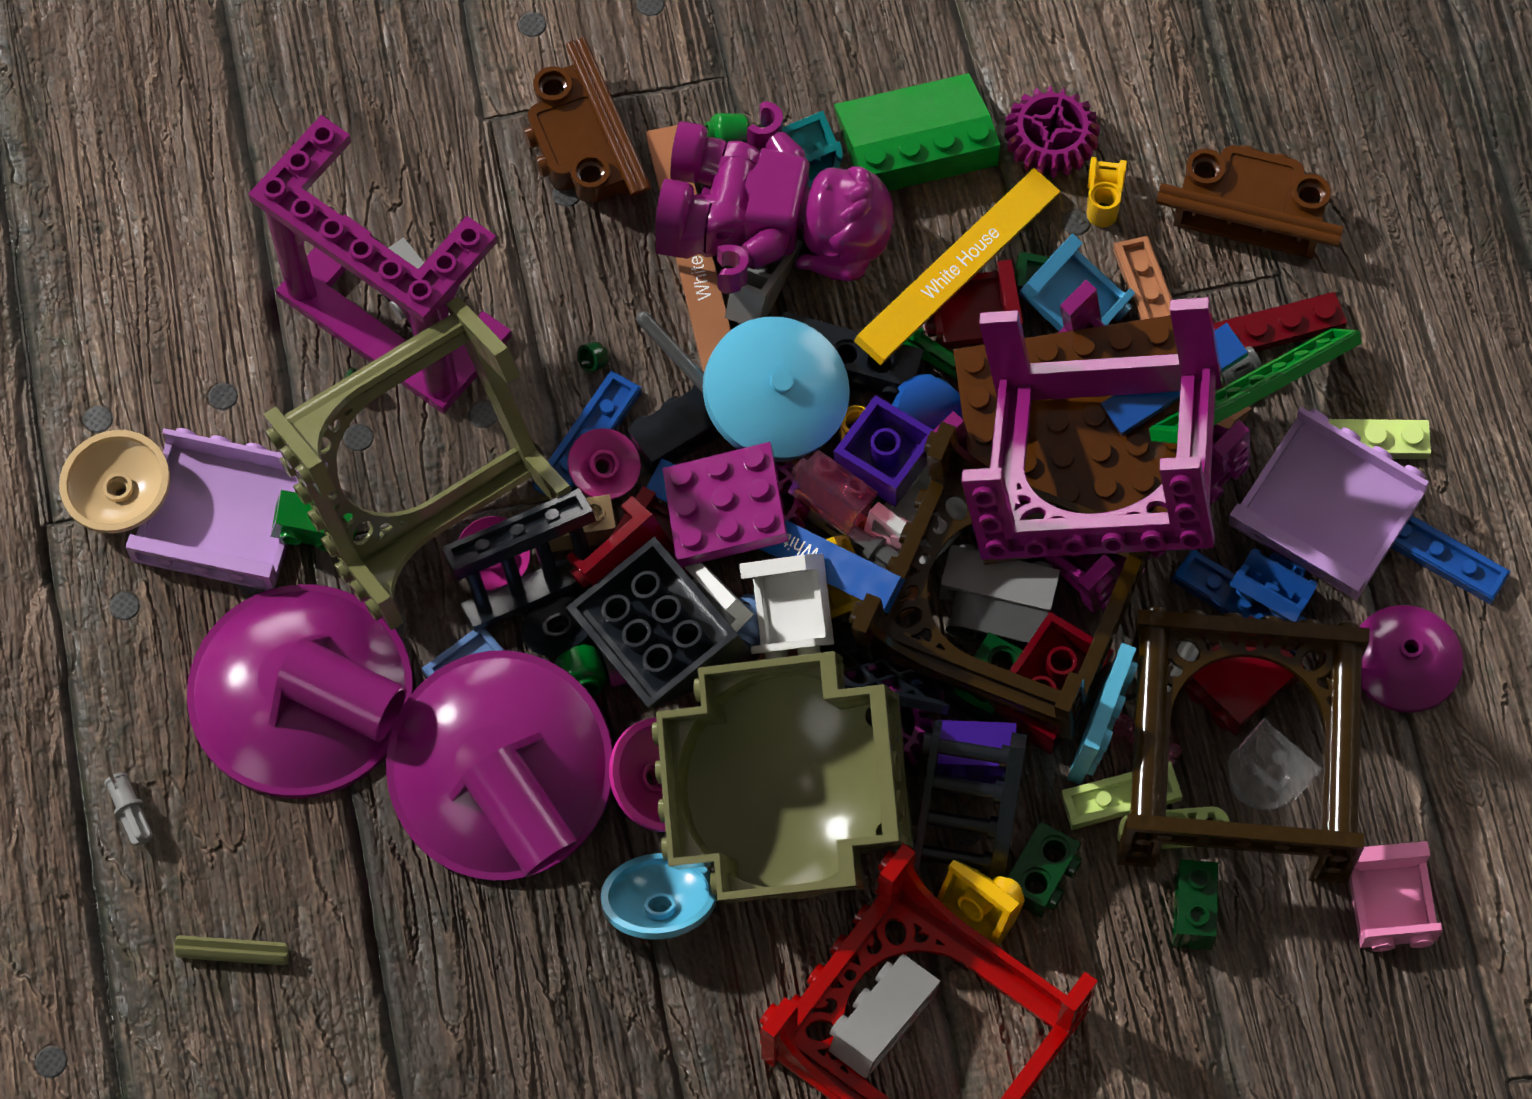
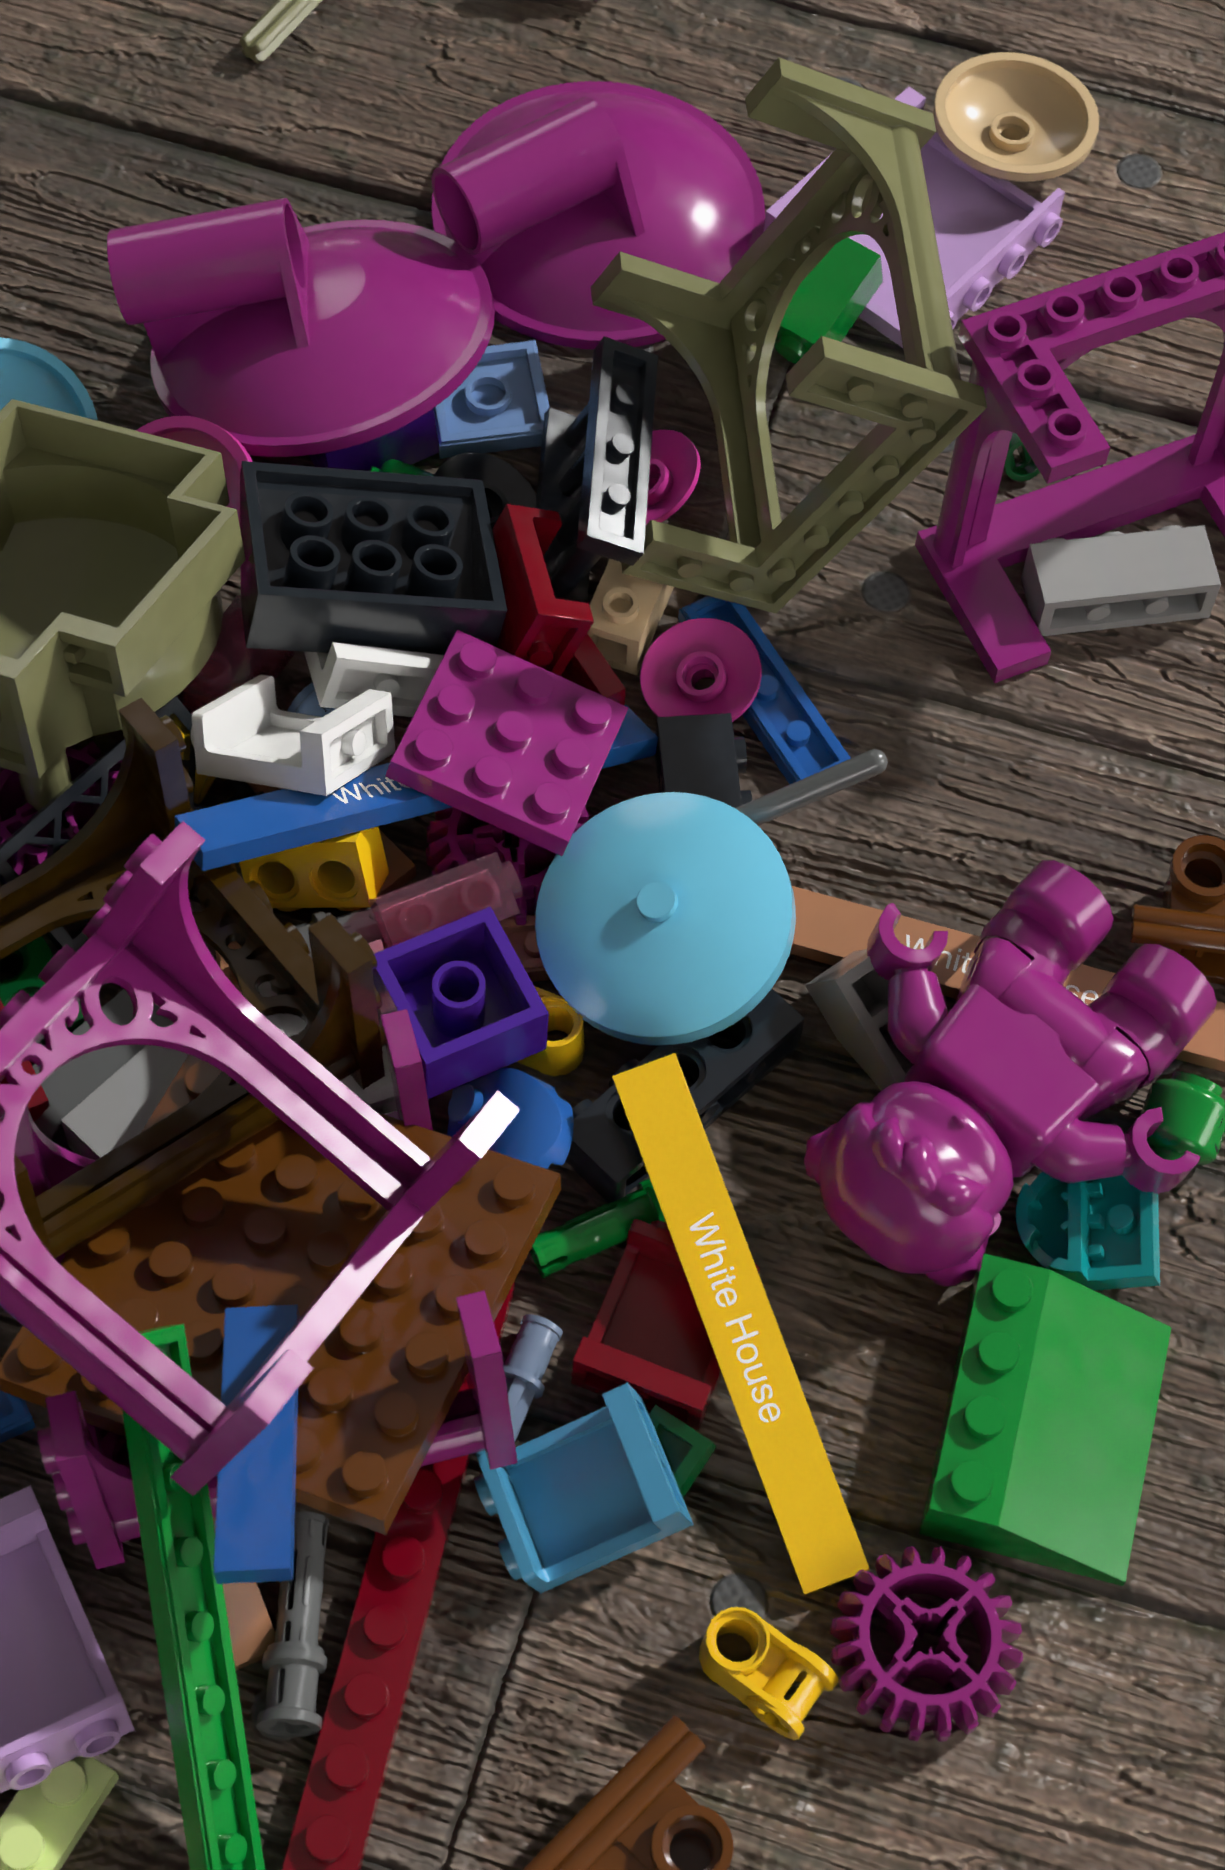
camera: 115 degrees right, 5 degrees down
(592, 356) = (900, 755): dark green hinge -> none
(1144, 277) = (507, 1618): nougat tile -> none

